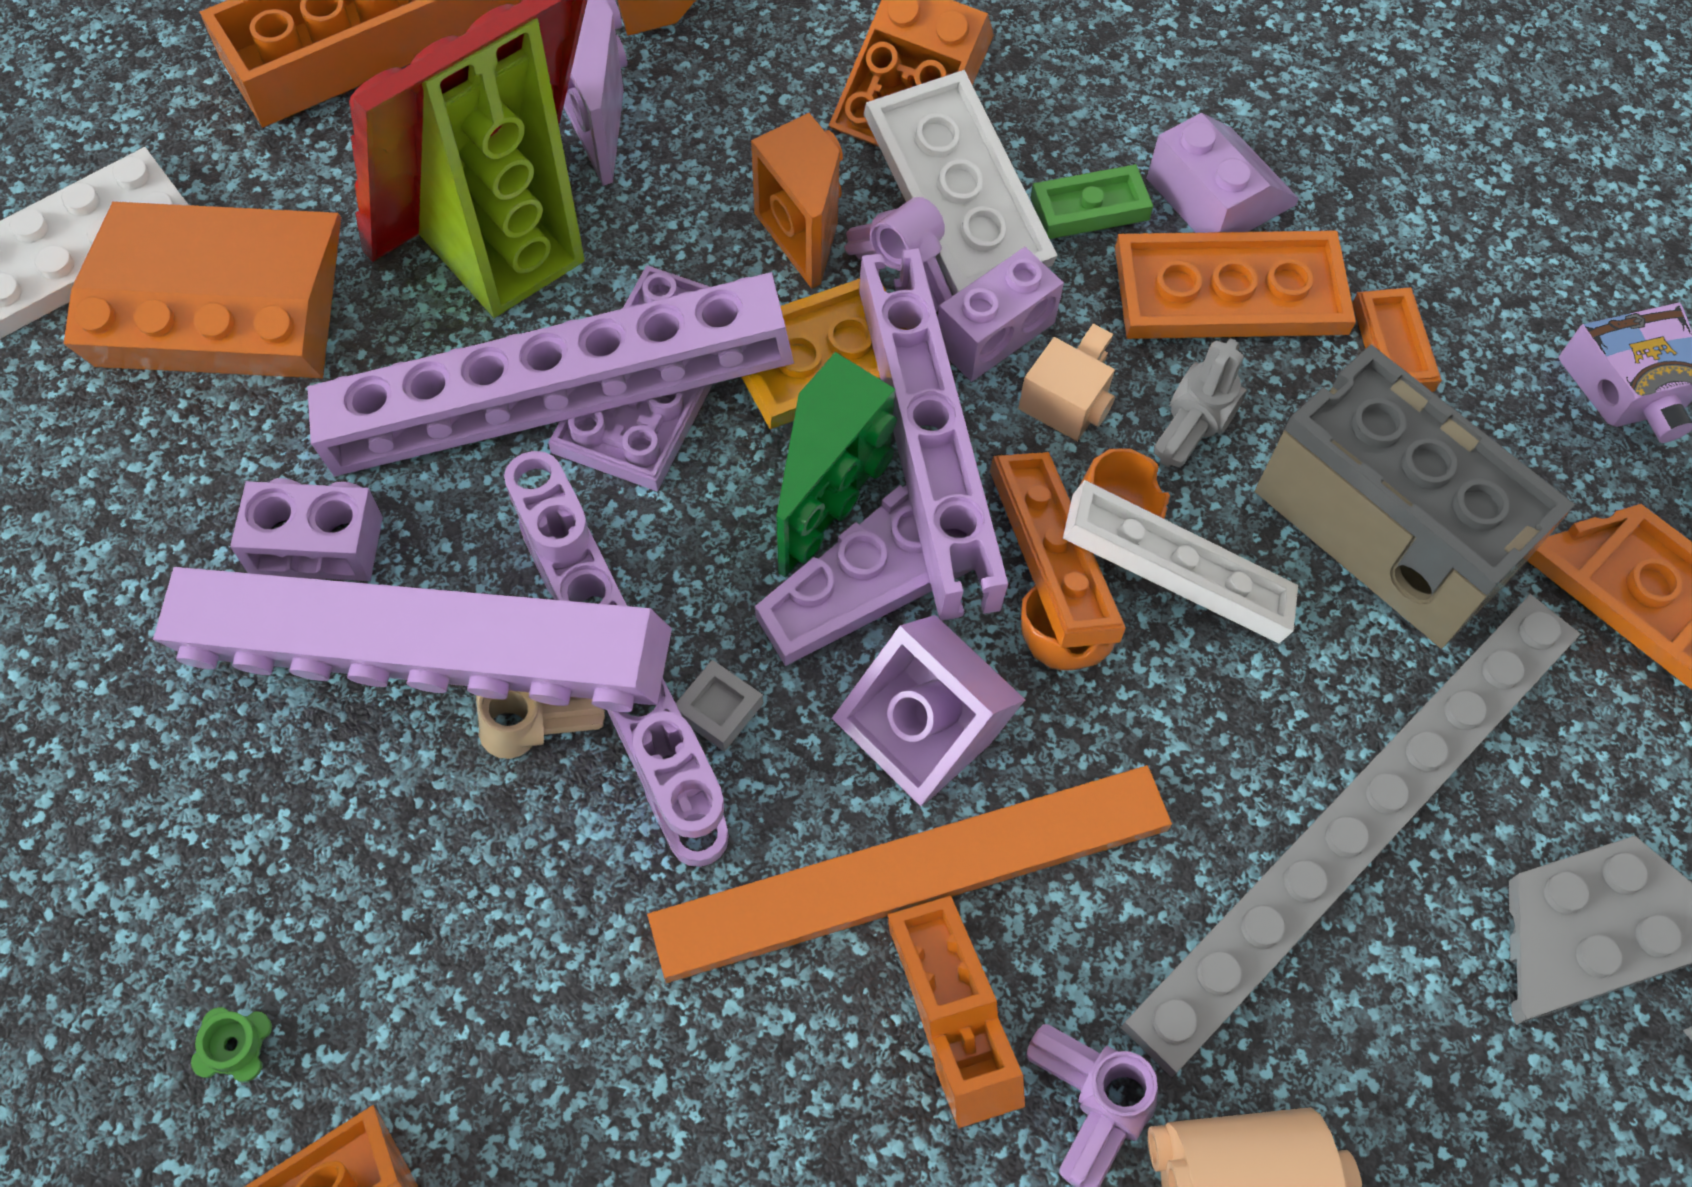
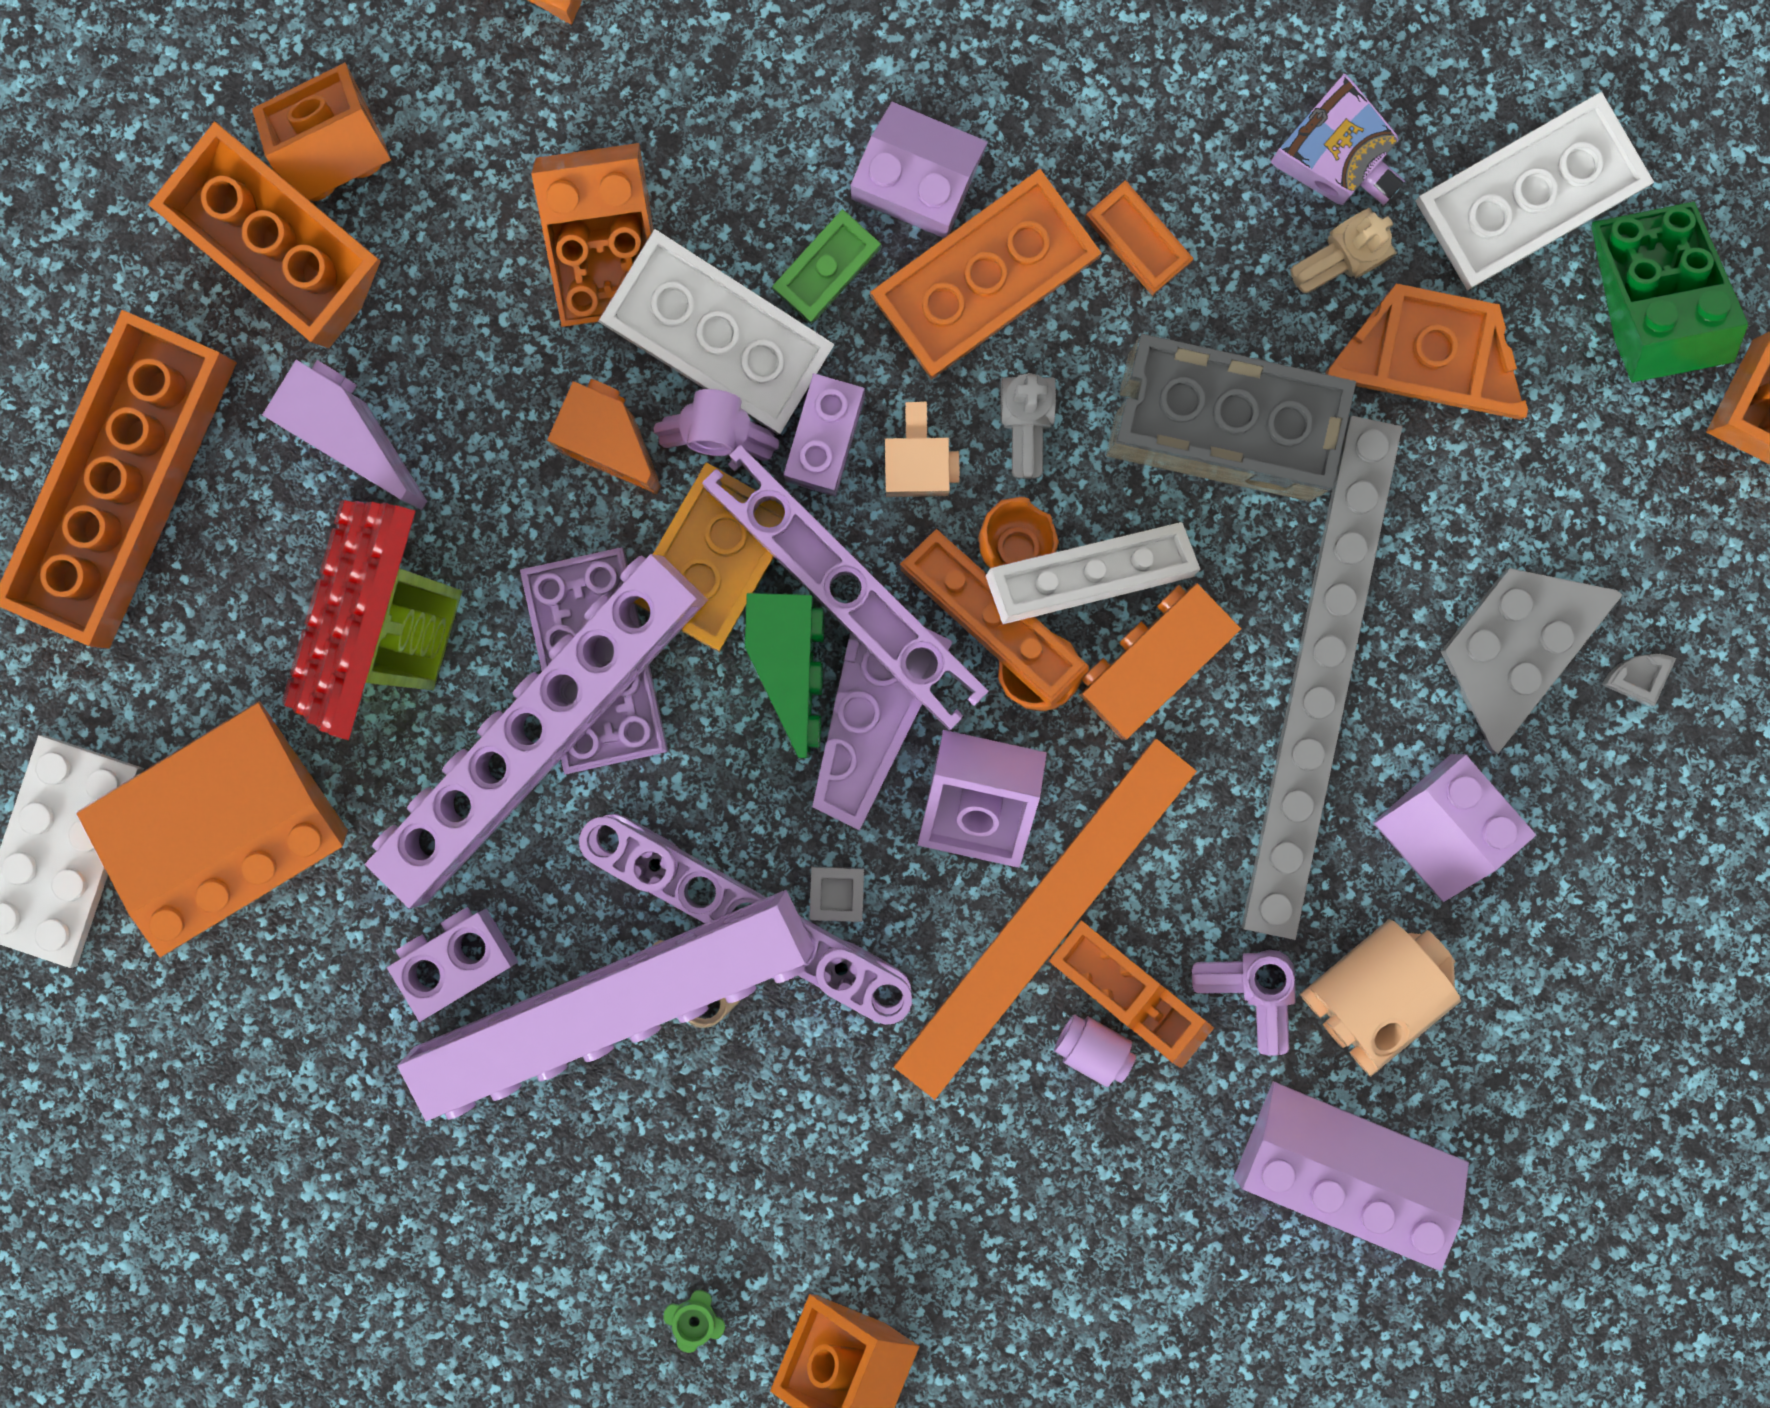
camera: 25 degrees left, 25 degrees up
(874, 1041) = (1095, 1050): none -> lavender brick
(1197, 691) = (1157, 659): none -> orange brick
(1436, 1064) = (1454, 827): none -> lavender slope
(1613, 453) = (1353, 249): none -> tan axle

